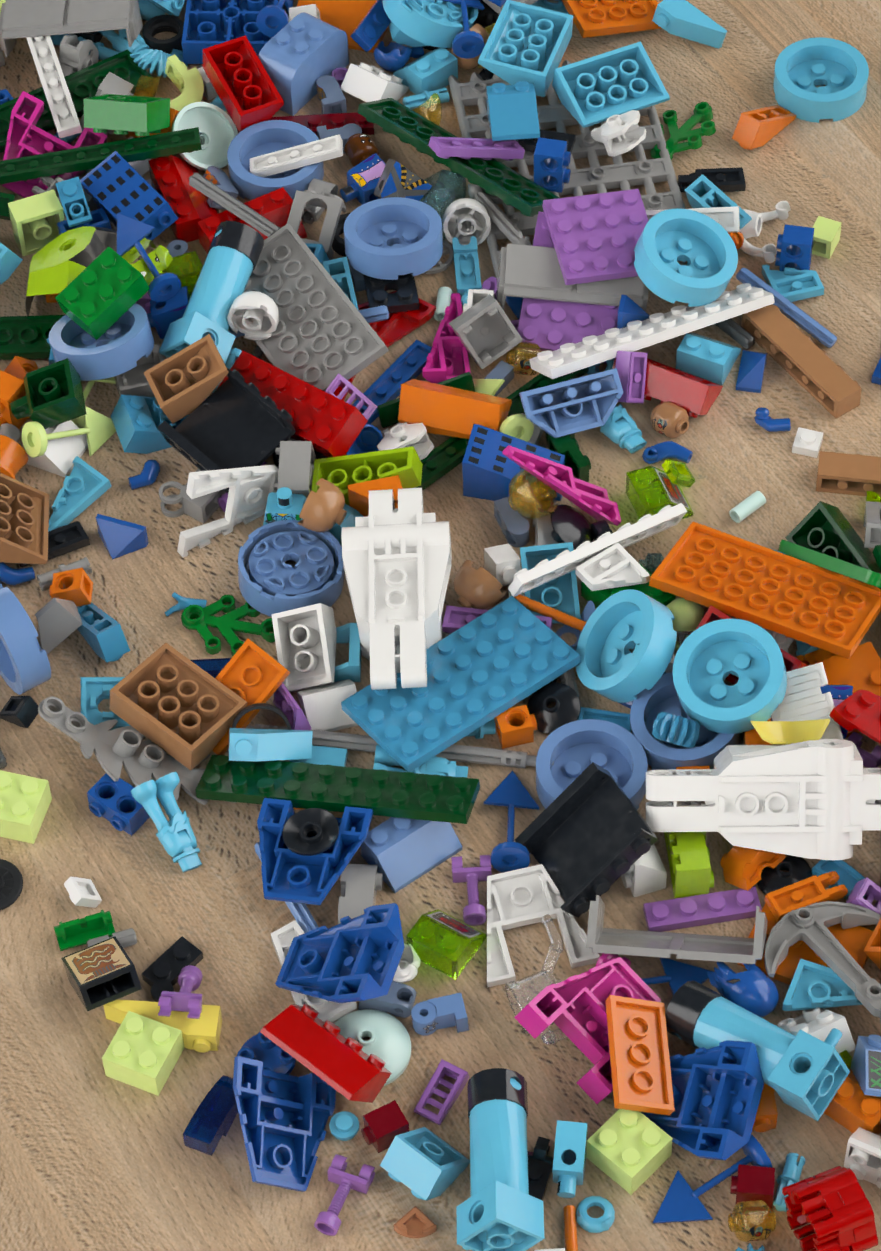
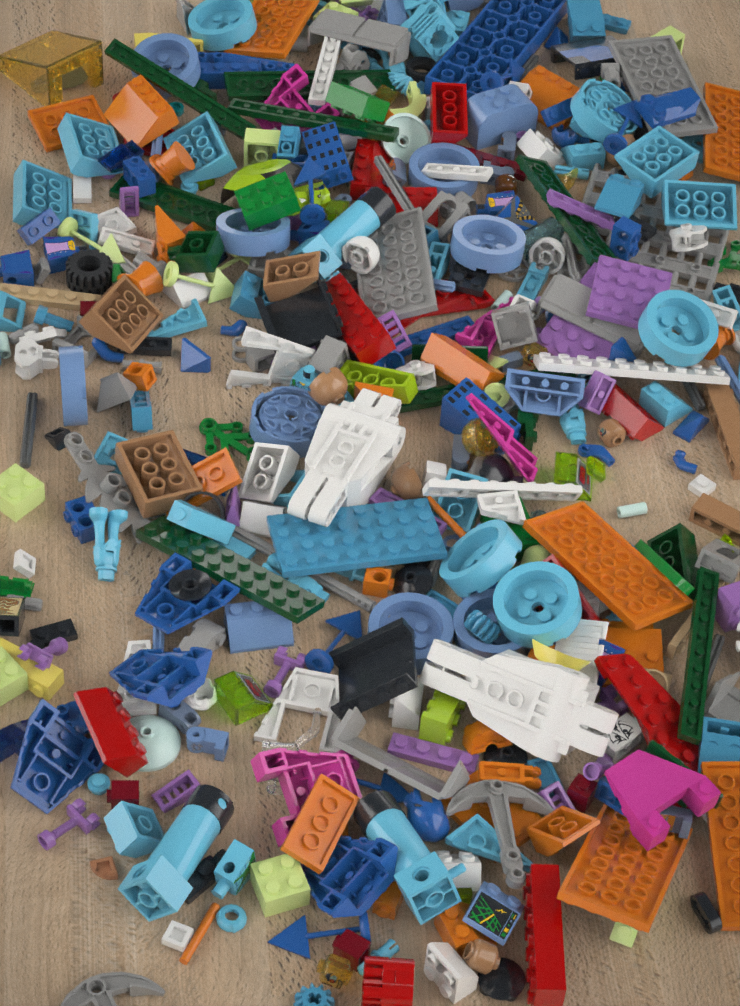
camera: 20 degrees right, 5 degrees down
(184, 602) = (207, 414): dark azure bar -> none

